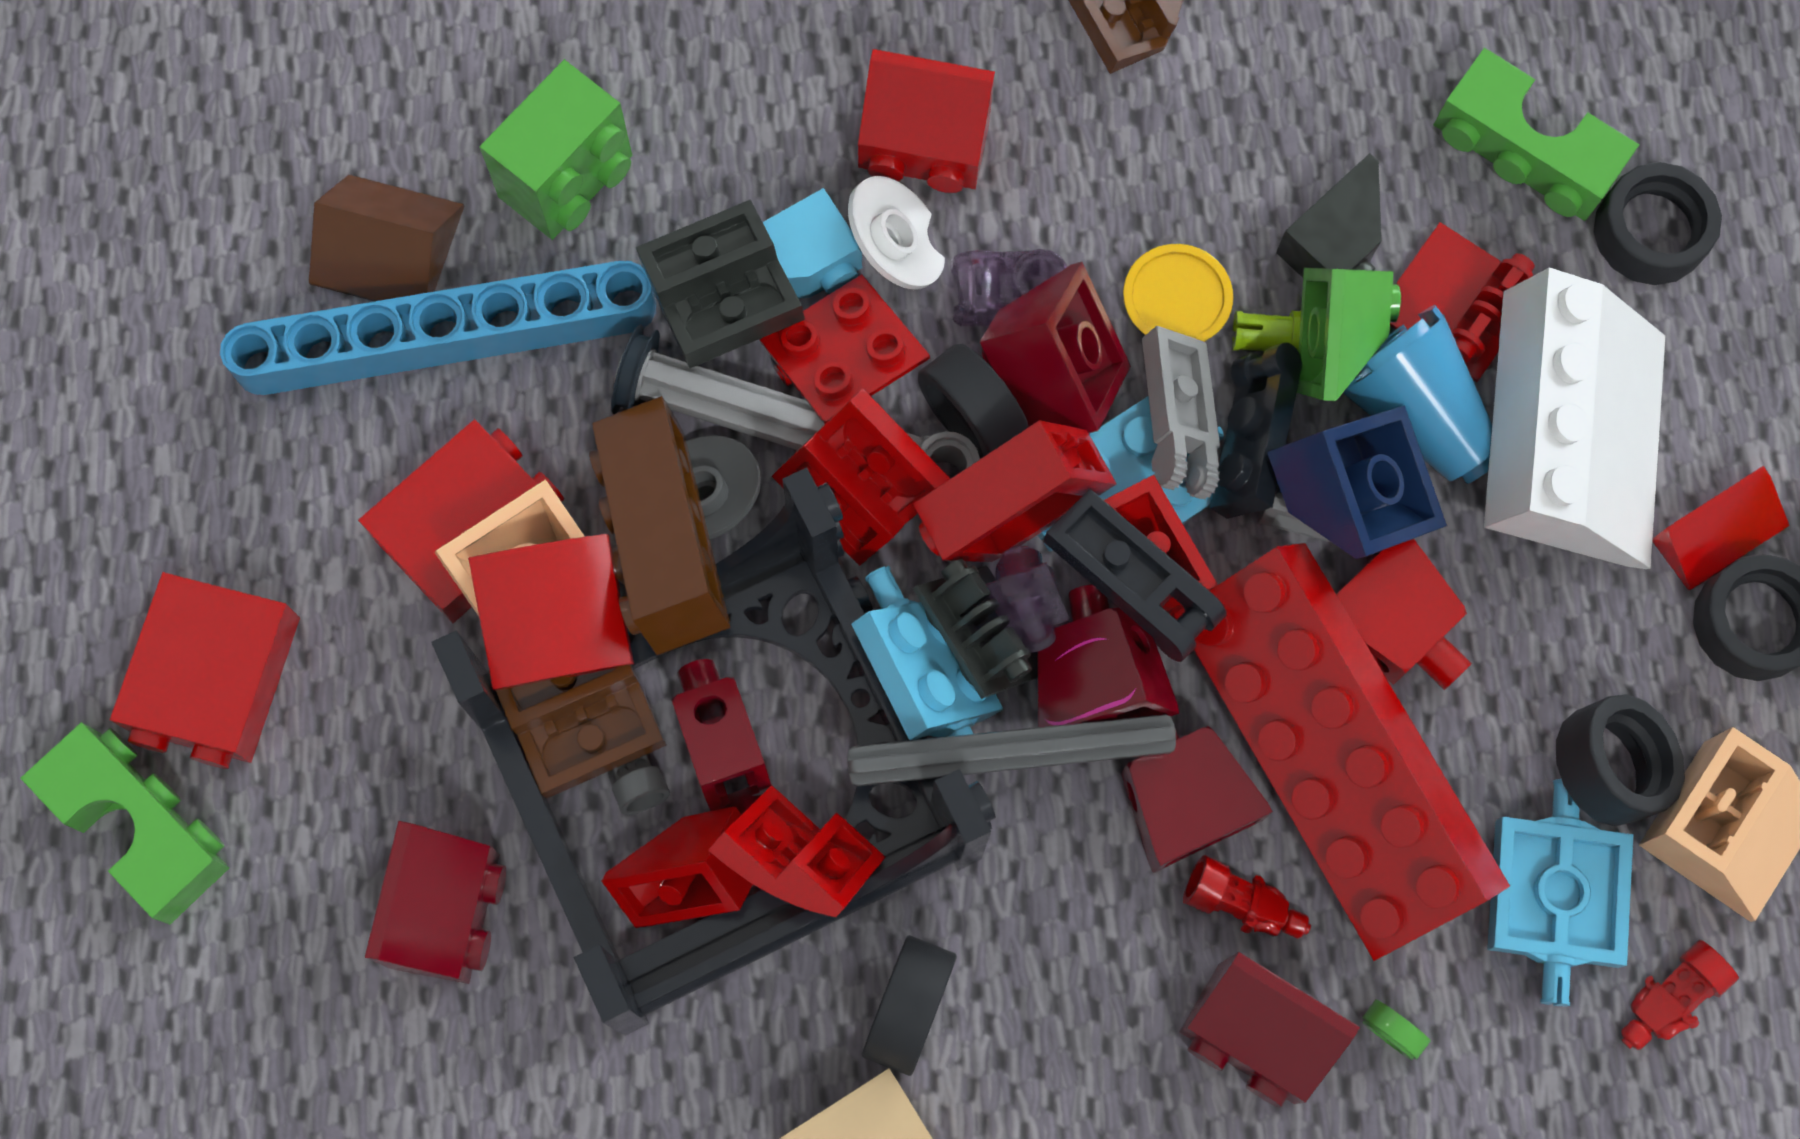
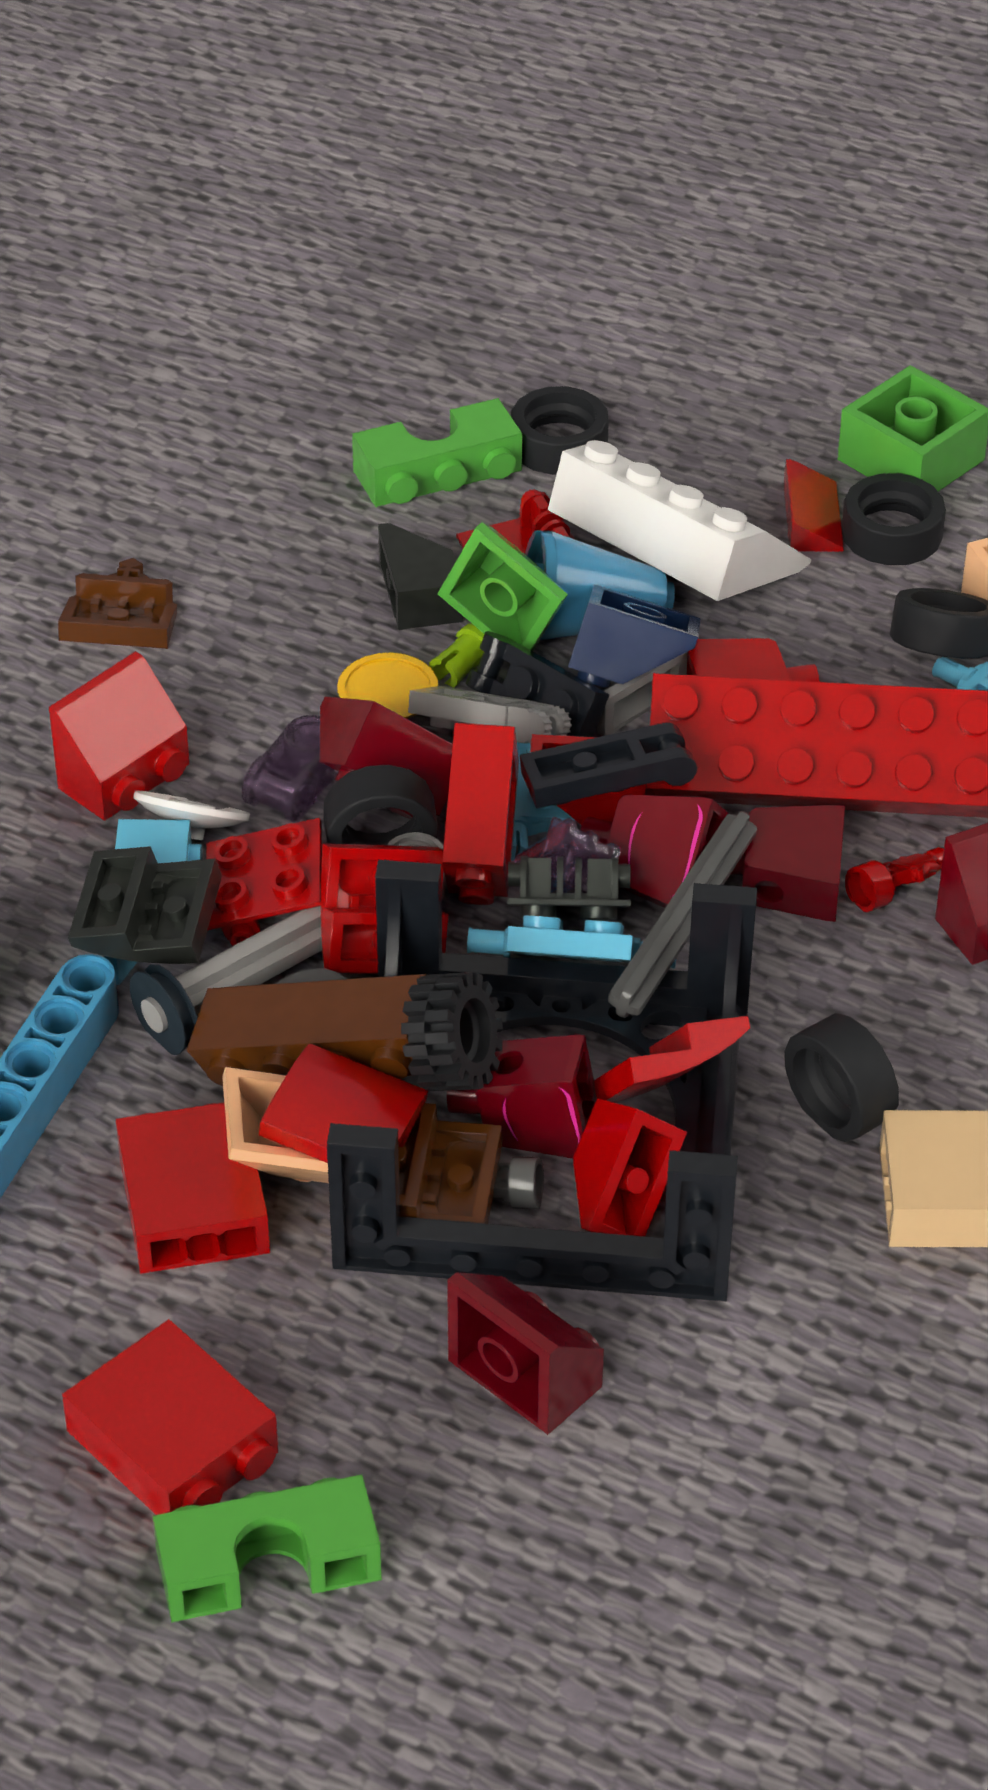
camera: 55 degrees left, 30 degrees down
(680, 650) = (452, 1031): none -> black tyre

